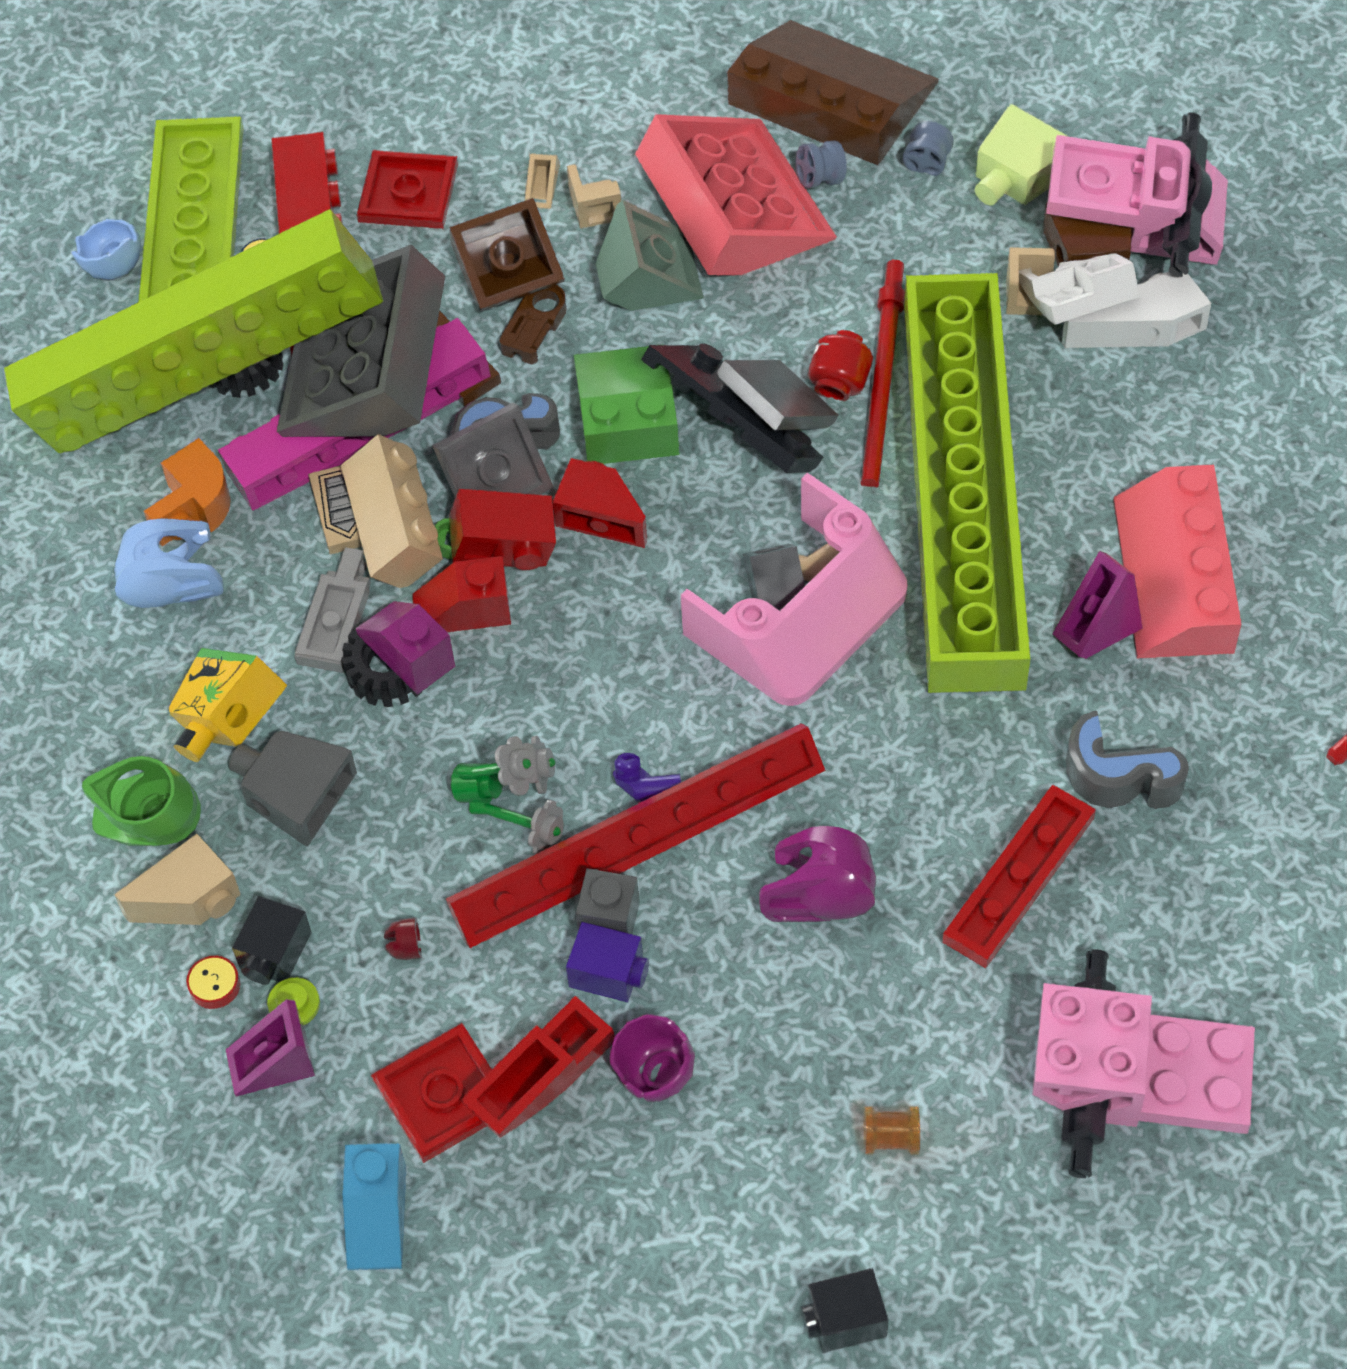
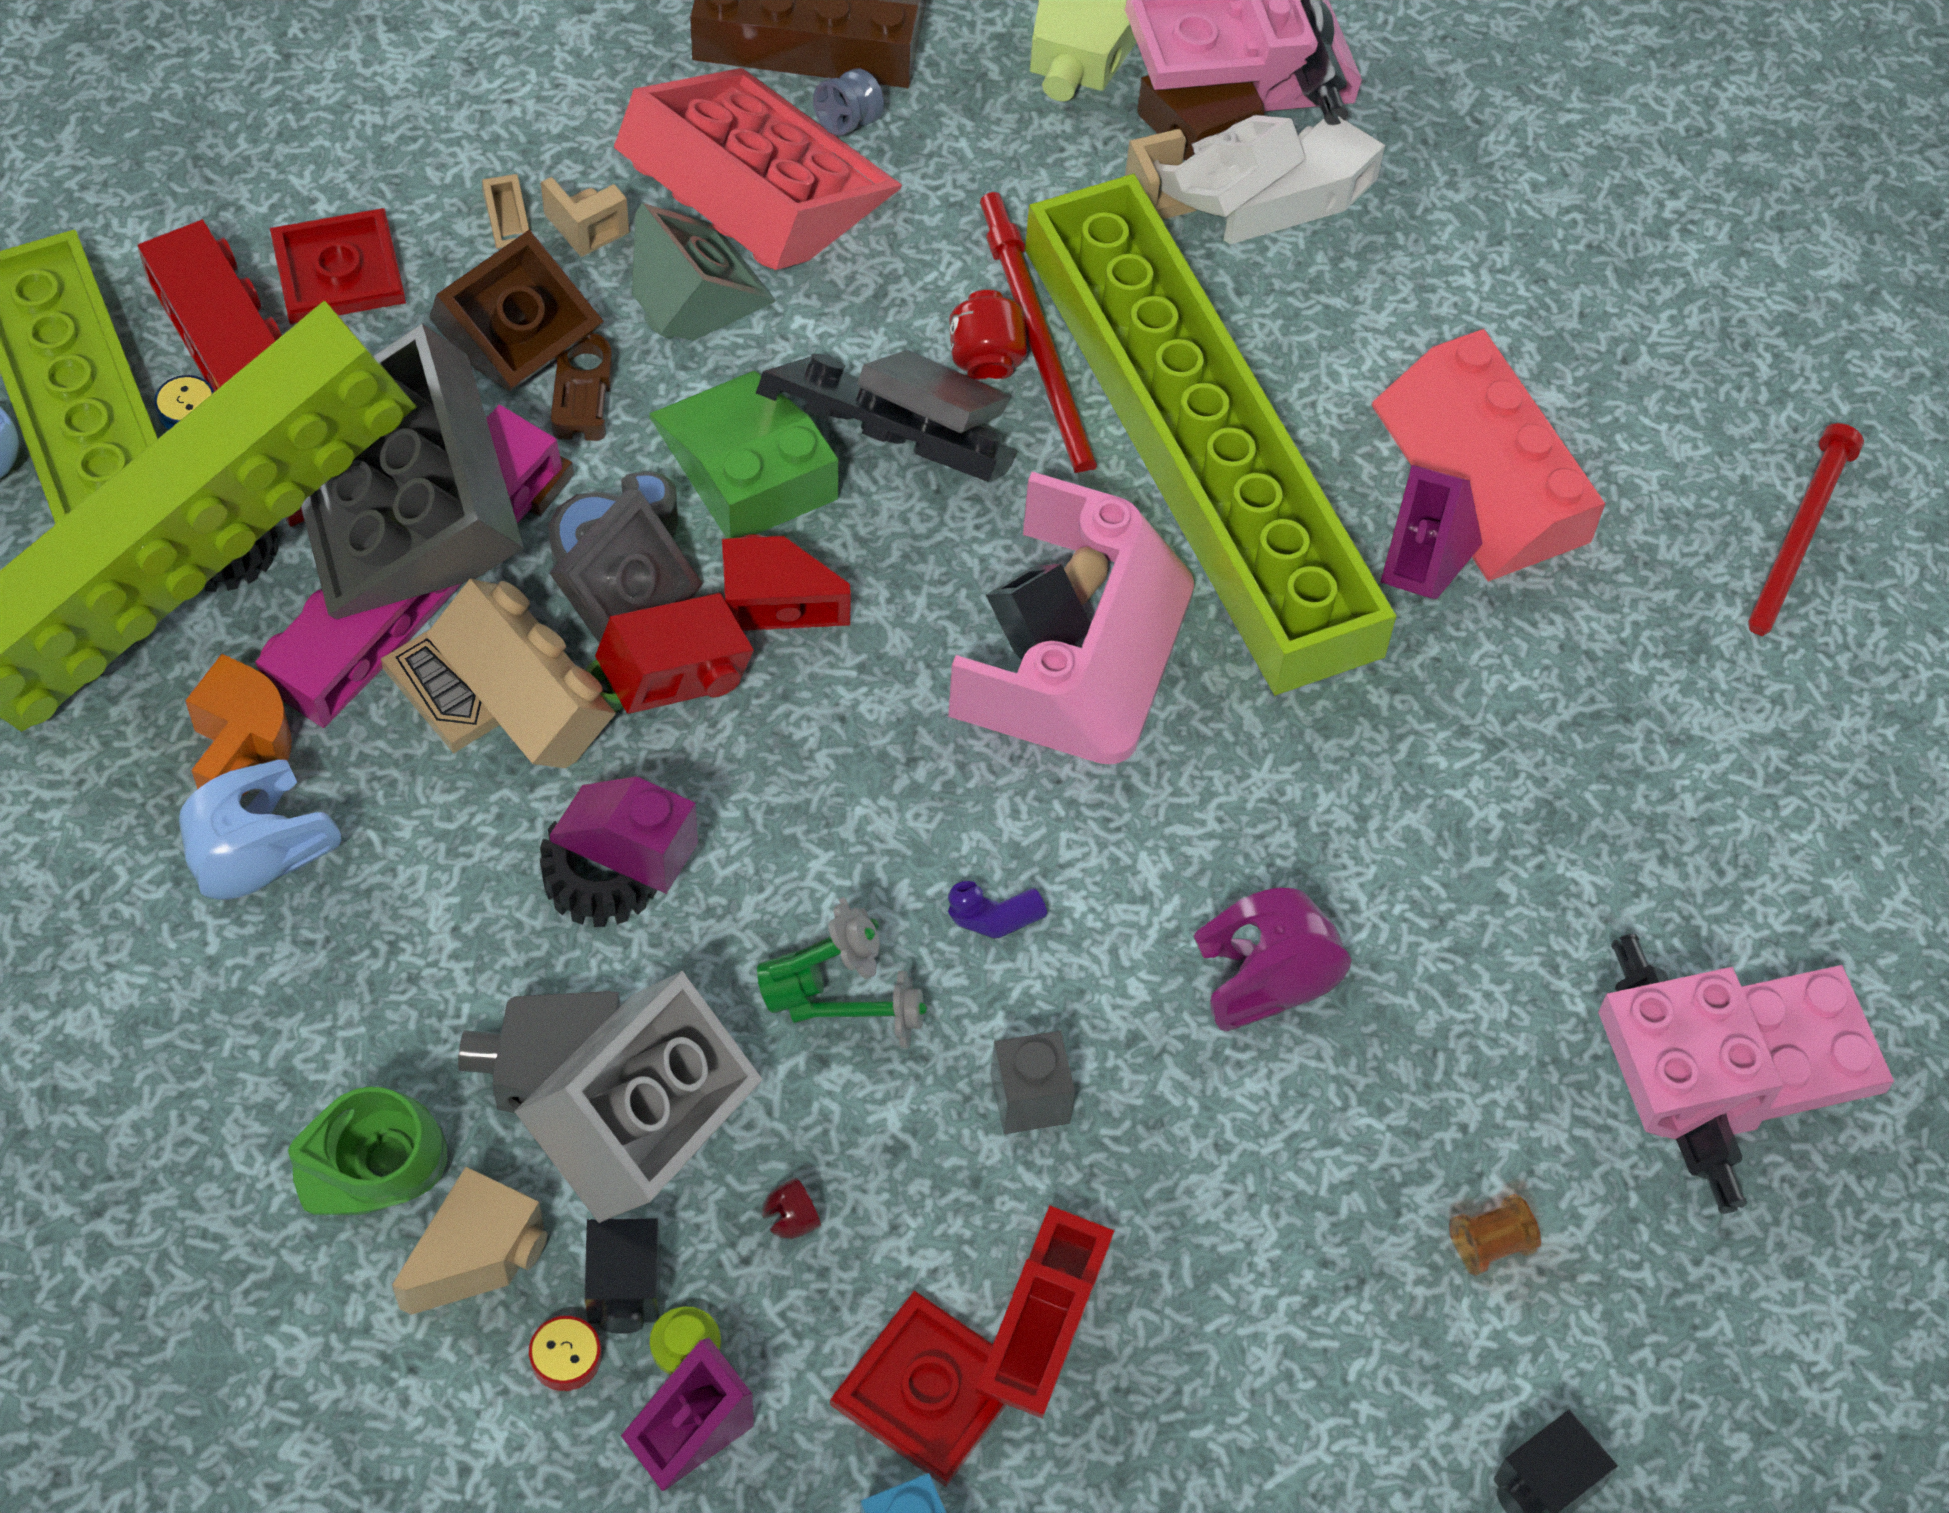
camera: 30 degrees left, 0 degrees up
(222, 700) = (414, 981): yellow torso -> none
(324, 823) = (639, 1097): none -> light grey brick
(334, 613) = (502, 828): light grey hinge -> none
(467, 595) = (669, 745): red slope -> none
(606, 962) = (1061, 1150): dark purple brick -> none
(635, 834) = (1013, 985): red plate -> none
(652, 1041) = (1180, 1225): magenta hair -> none
(928, 148) = (965, 51): sand blue wheel -> none
(1018, 876) = (1488, 880): red plate -> none
(1121, 776) = (1538, 728): dark grey animal -> none

